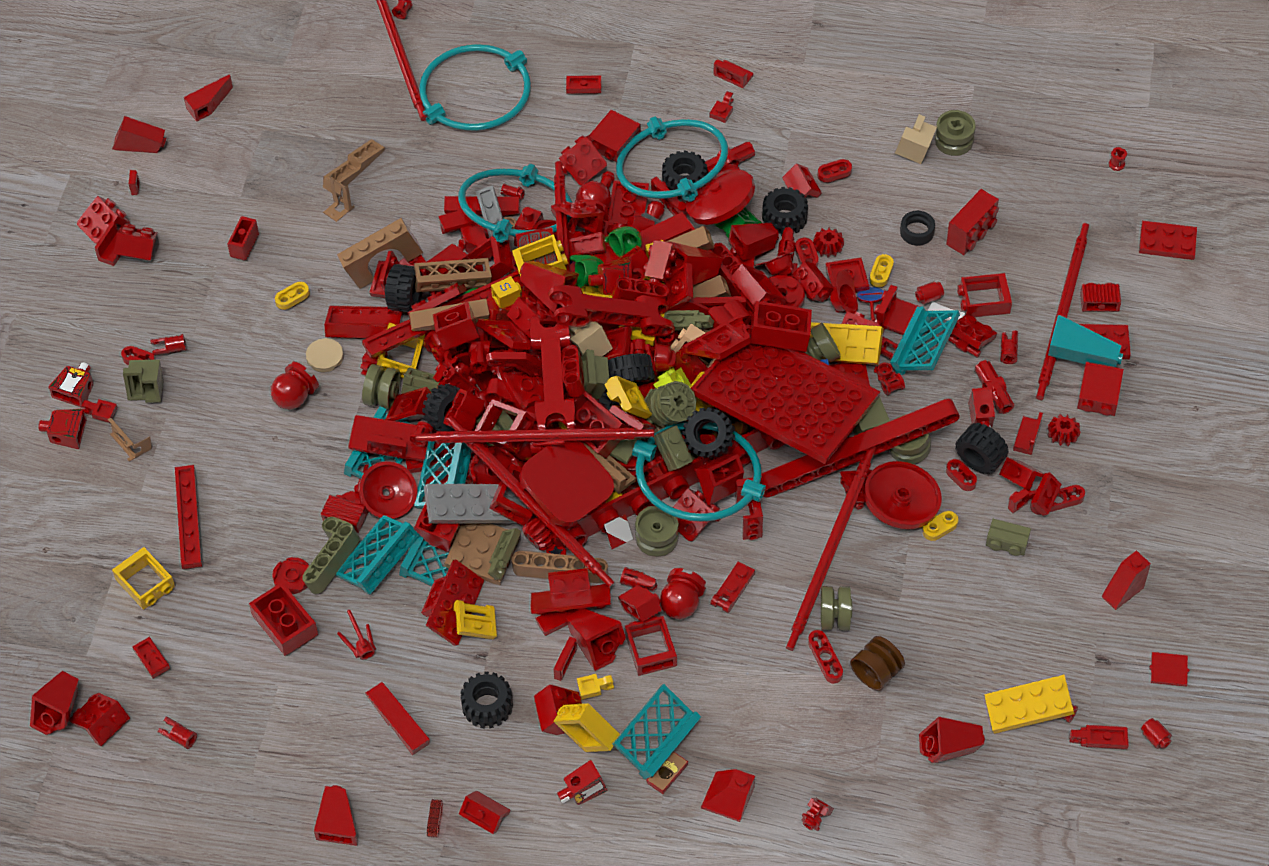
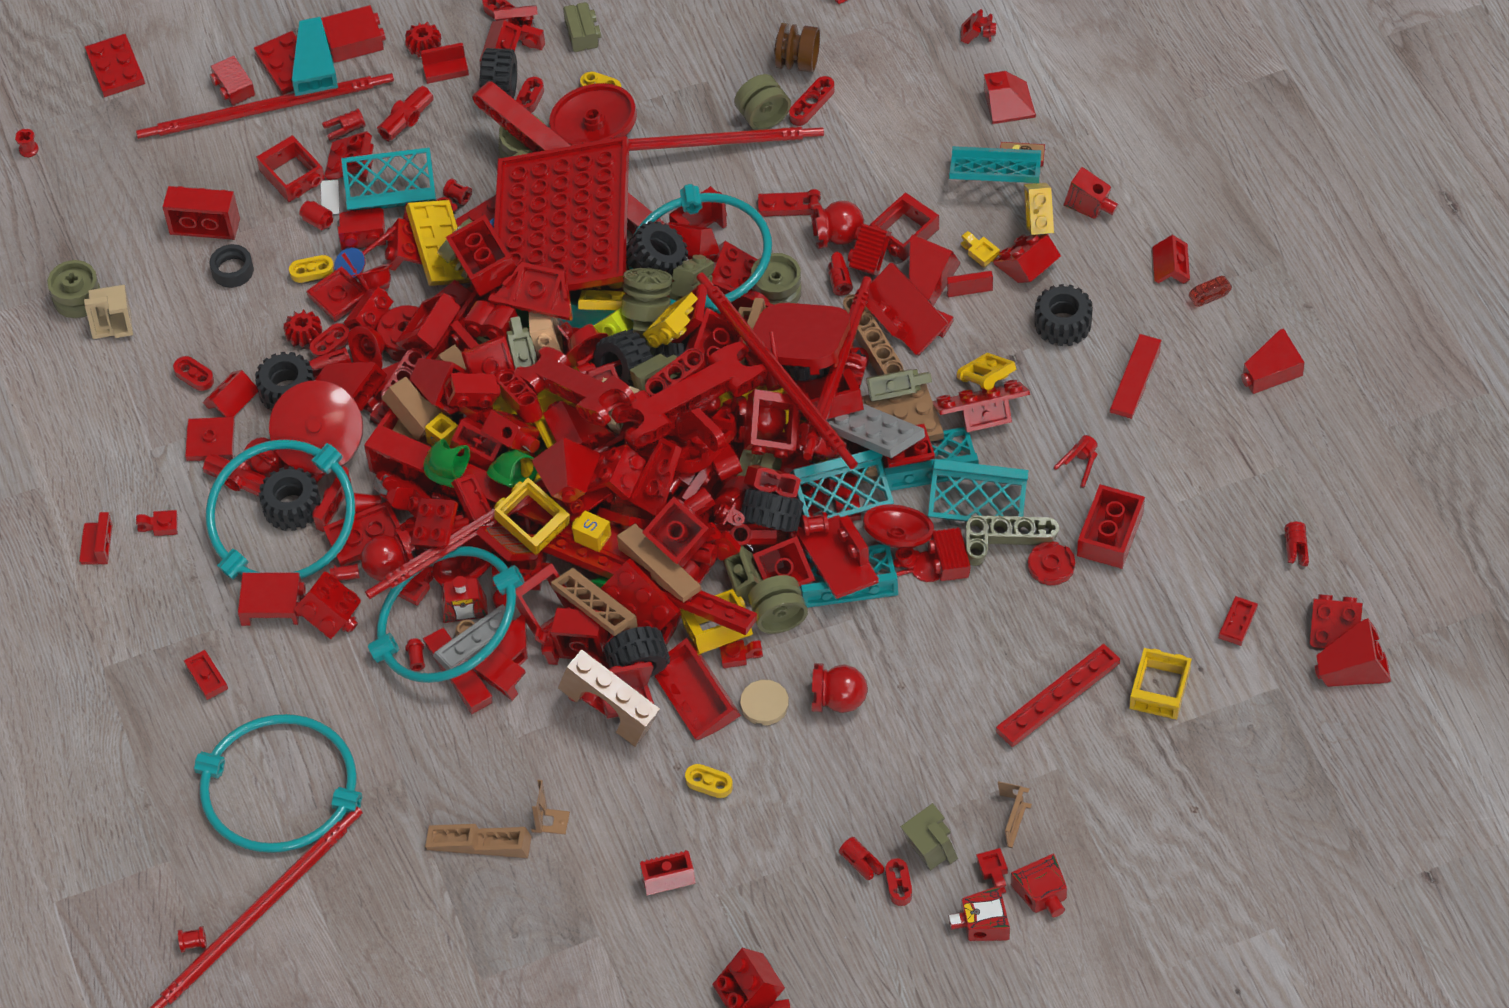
camera: 120 degrees left, 0 degrees up
(773, 160) = (209, 437): none -> red plate
(982, 406) = (445, 104): red torso -> none

